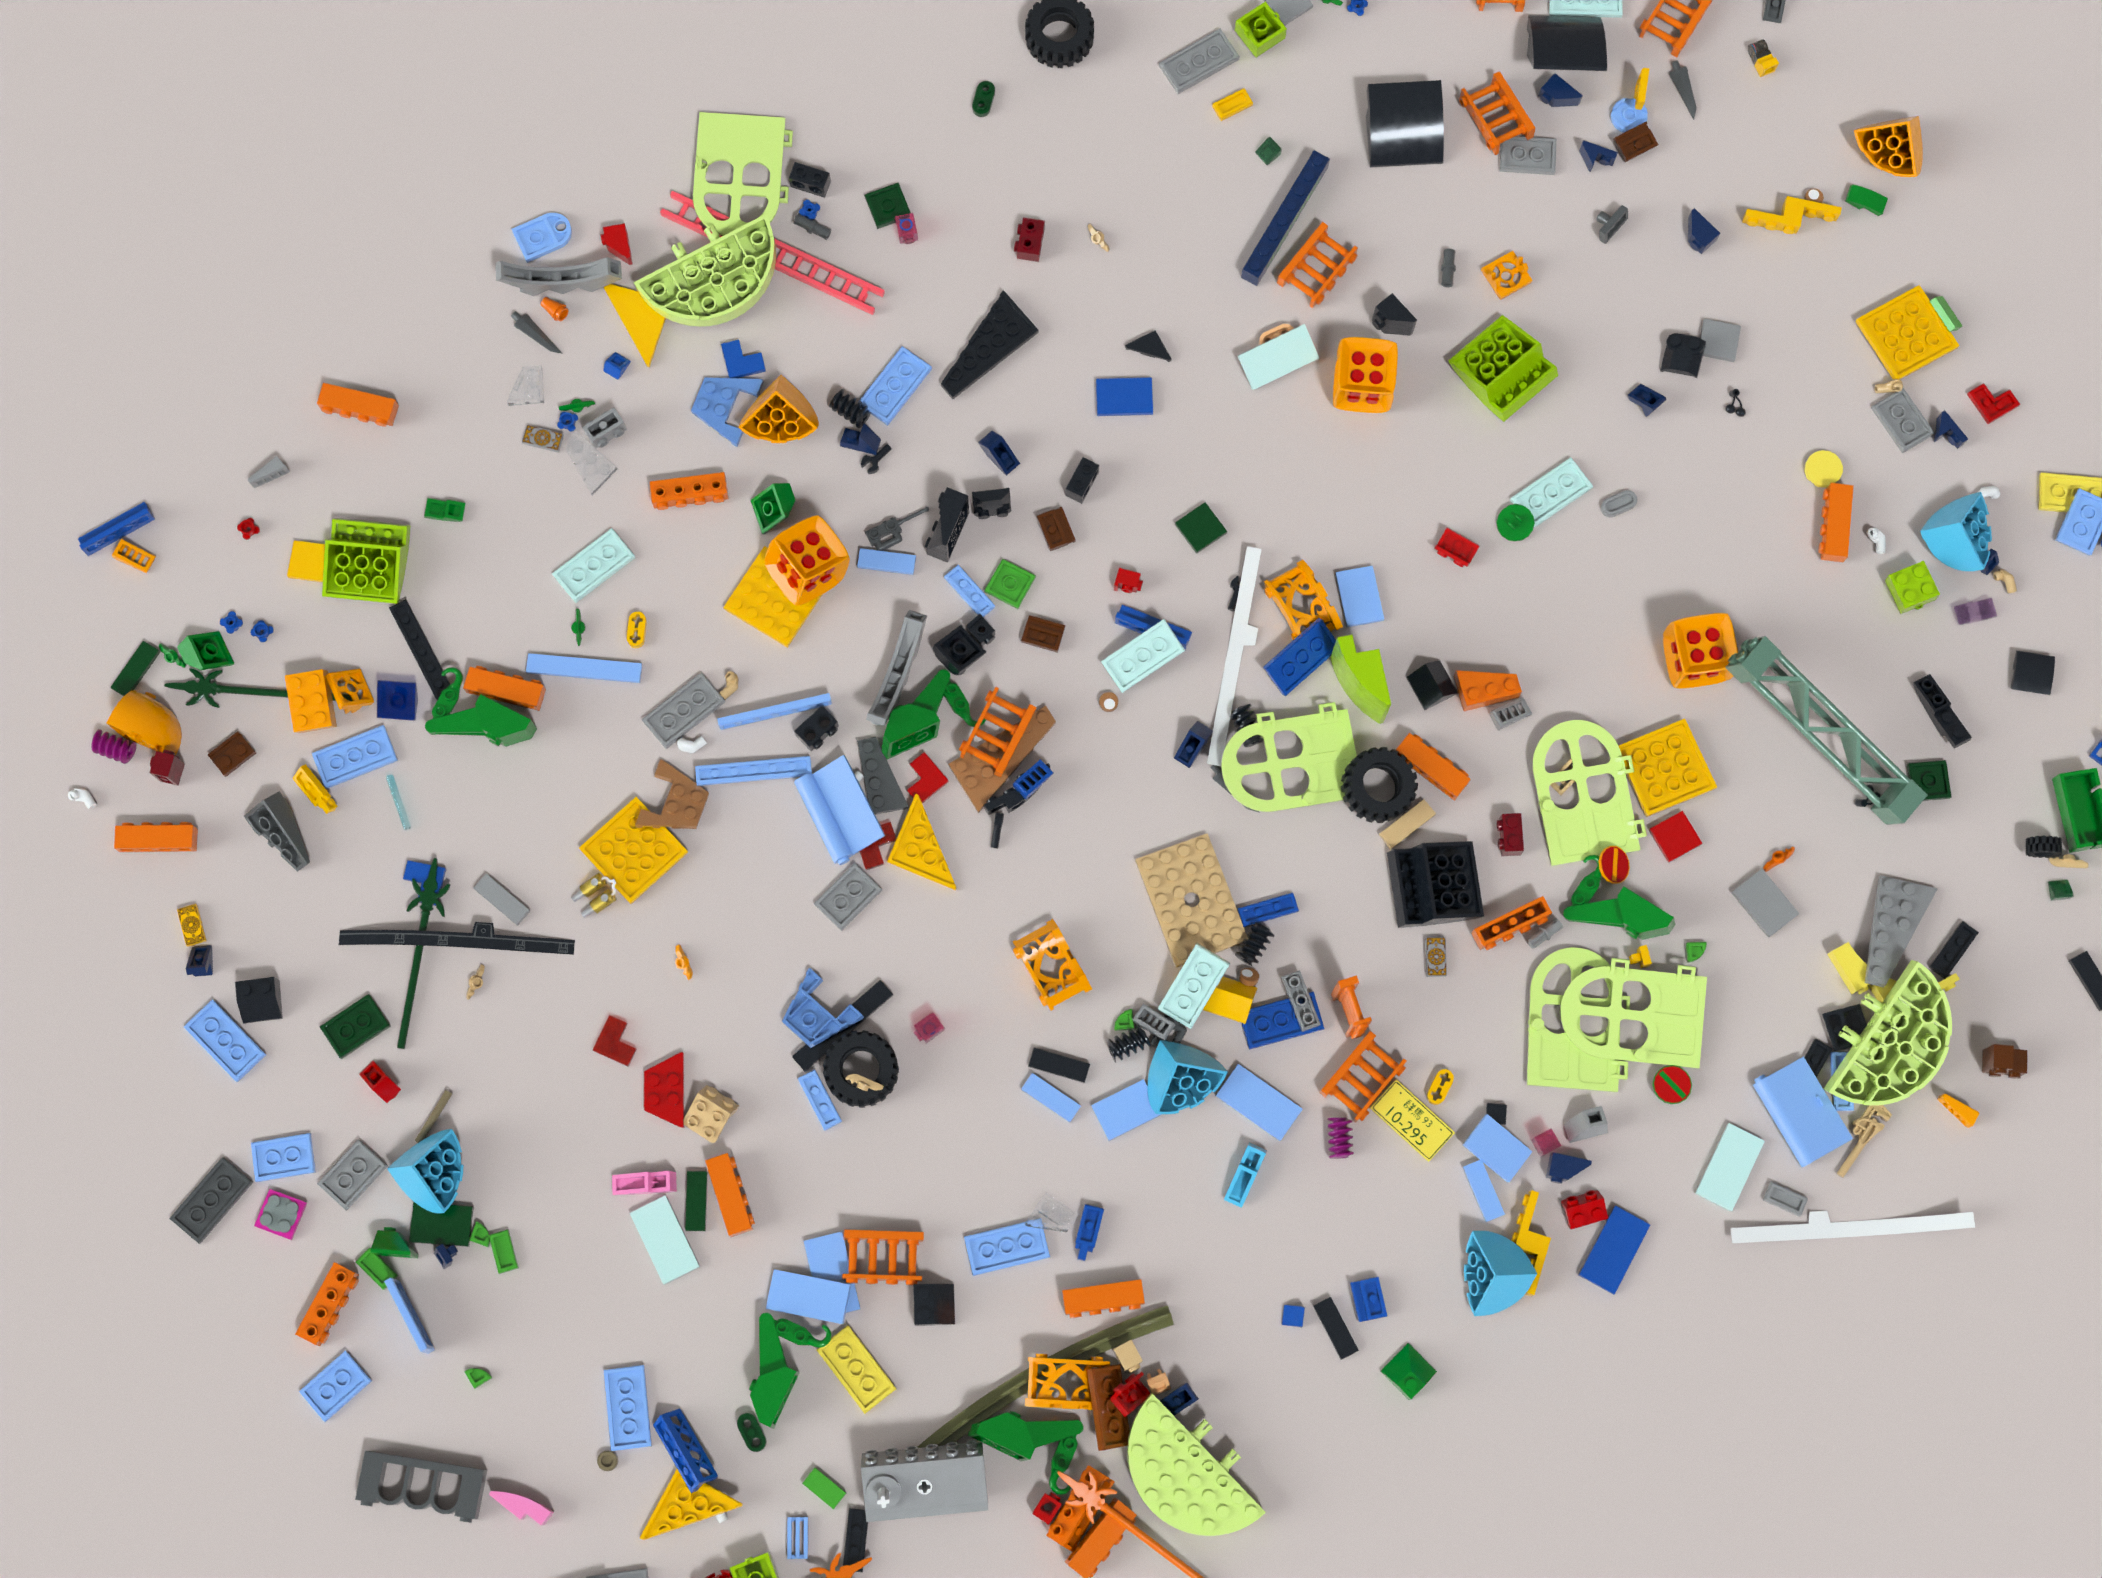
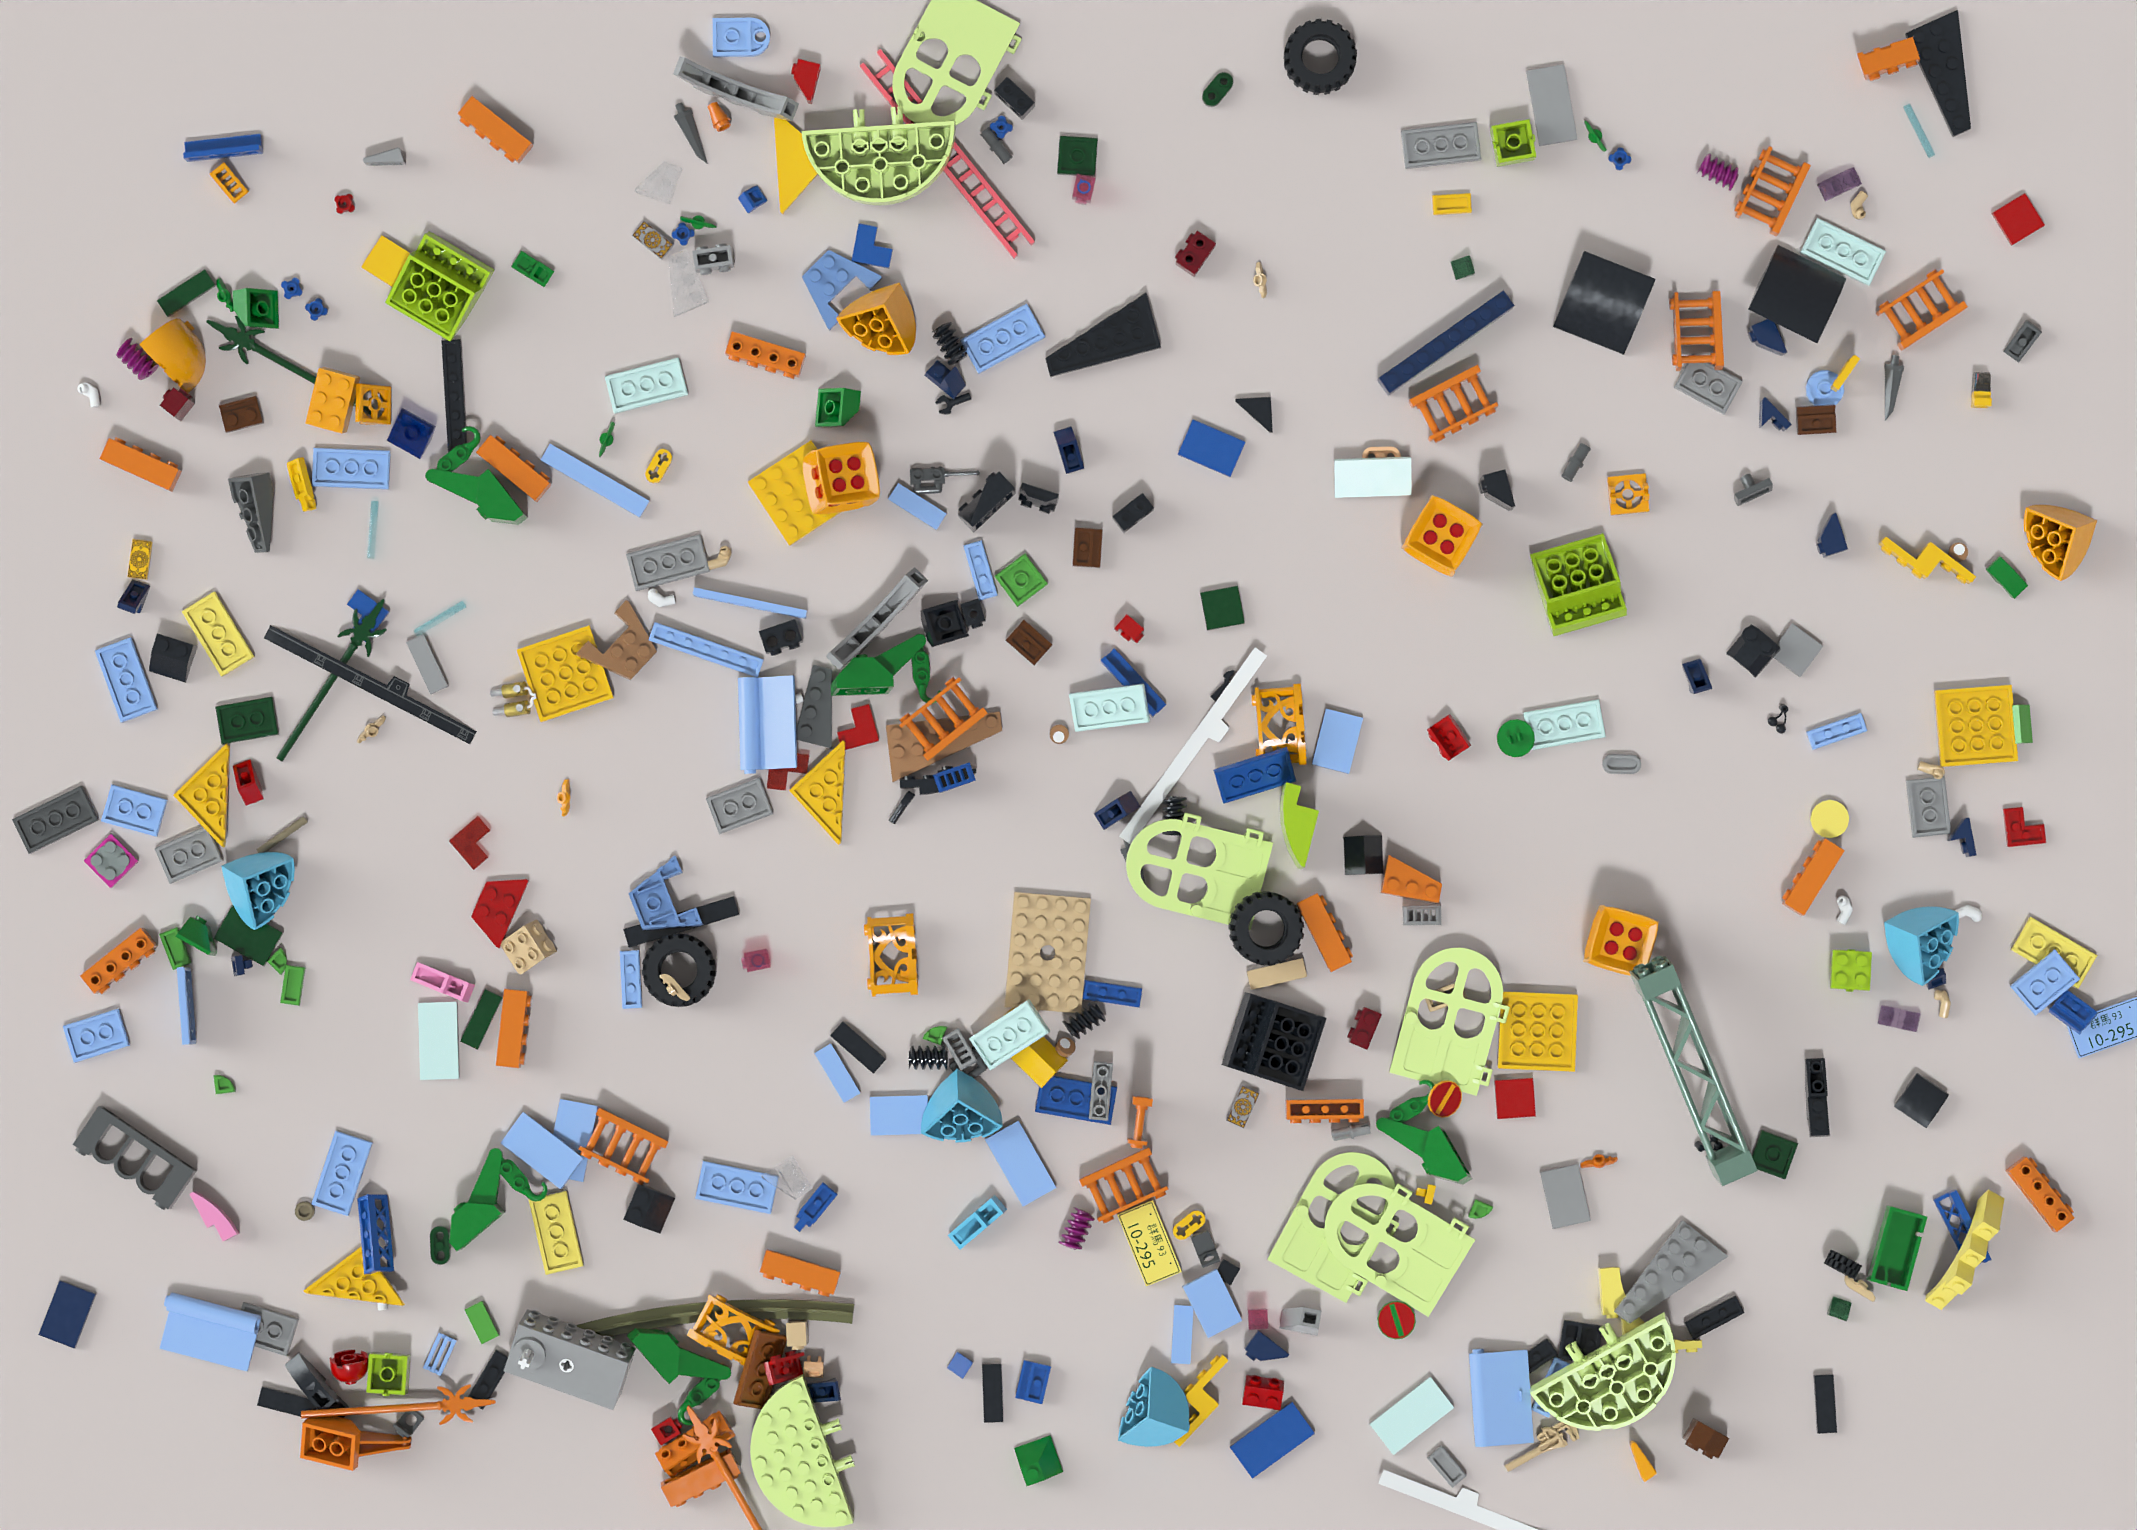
camera: 25 degrees right, 10 degrees up
(294, 960) = (218, 634): none -> light yellow tile
(346, 1110) = (207, 795): none -> yellow tile
(495, 853) = (440, 618): none -> clear light blue bar
(1465, 1100) = (1204, 1248): none -> dark grey bracket
(1790, 392) = (1836, 731): none -> light blue tile

